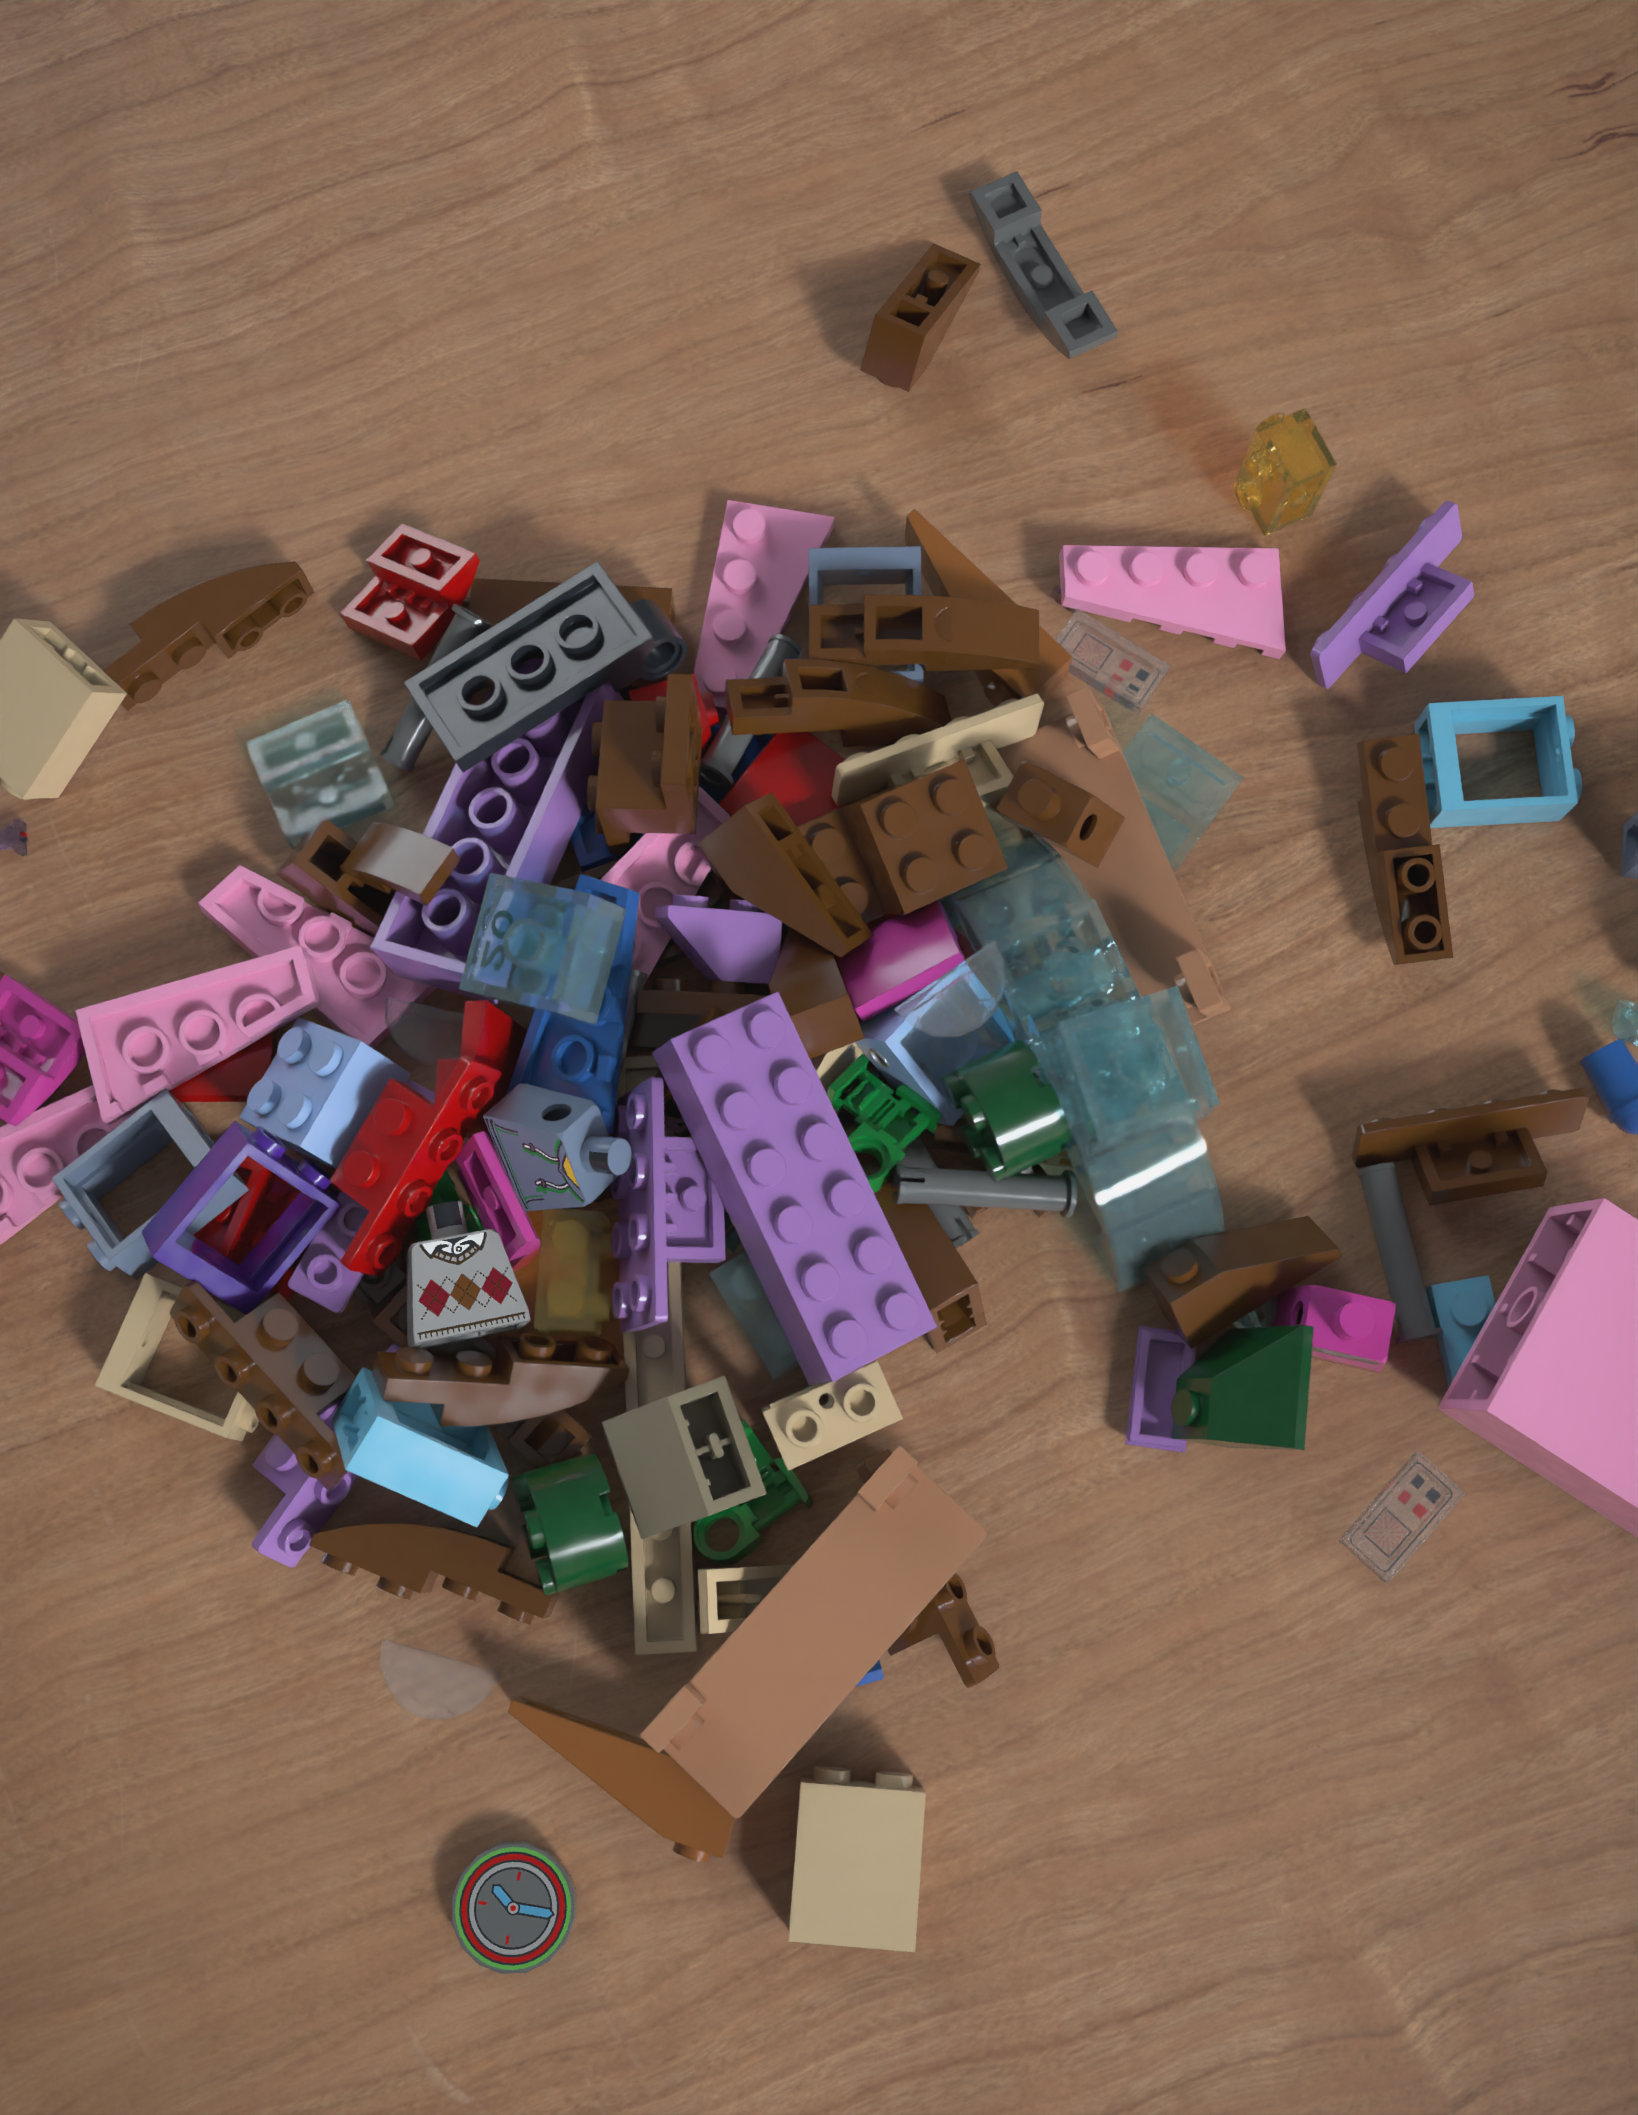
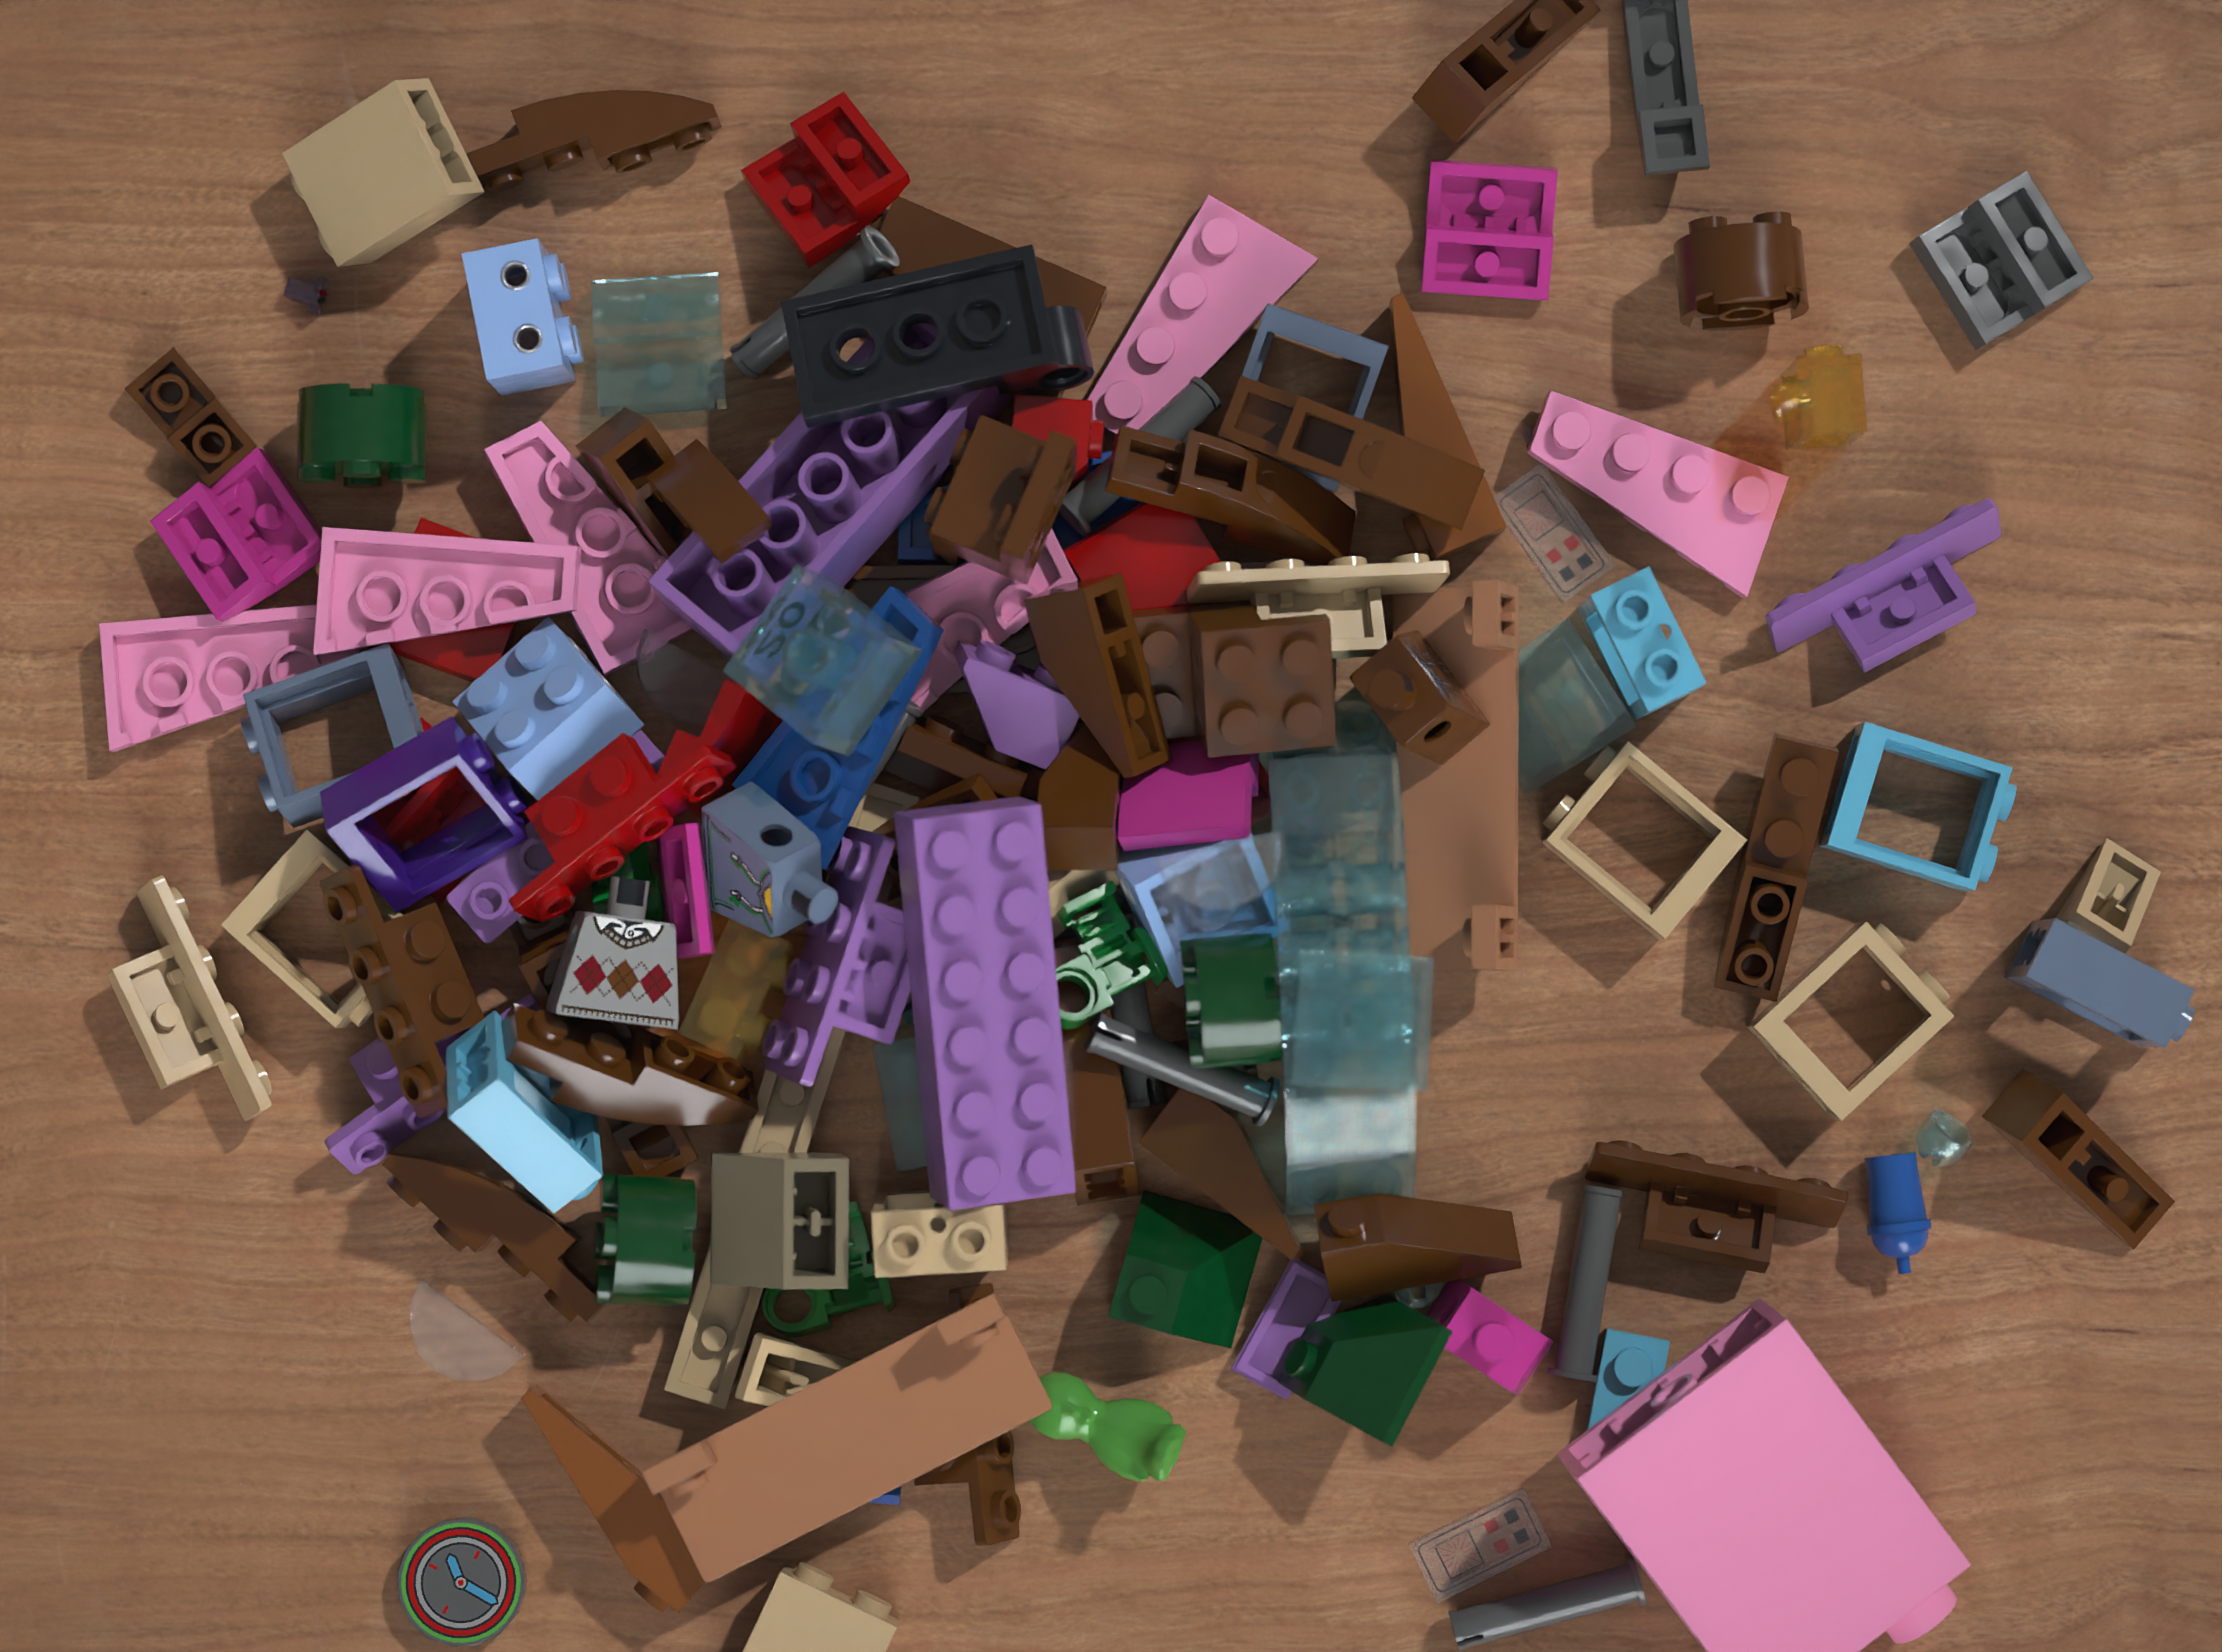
camera: 25 degrees right, 10 degrees up
(85, 924) = (361, 434): none -> dark green brick
(85, 1478) = (179, 1009): none -> tan bracket
(192, 780) = (521, 318): none -> light blue piece
(961, 450) = (1489, 229): none -> dark pink slope
(1040, 1262) = (1219, 1159): none -> reddish brown slope
(1052, 1372) = (1185, 1270): none -> dark green slope
(1061, 1534) = (1124, 1433): none -> bright green animal
(1176, 401) = (1740, 272): none -> reddish brown brick
(1207, 684) = (1629, 638): none -> medium azure window
(1345, 839) = (1694, 879): none -> tan window
(1369, 335) = (2001, 260): none -> dark grey slope
(1485, 1546) = (1547, 1605): none -> dark grey pin
(1496, 999) = (1805, 1065): none -> tan window

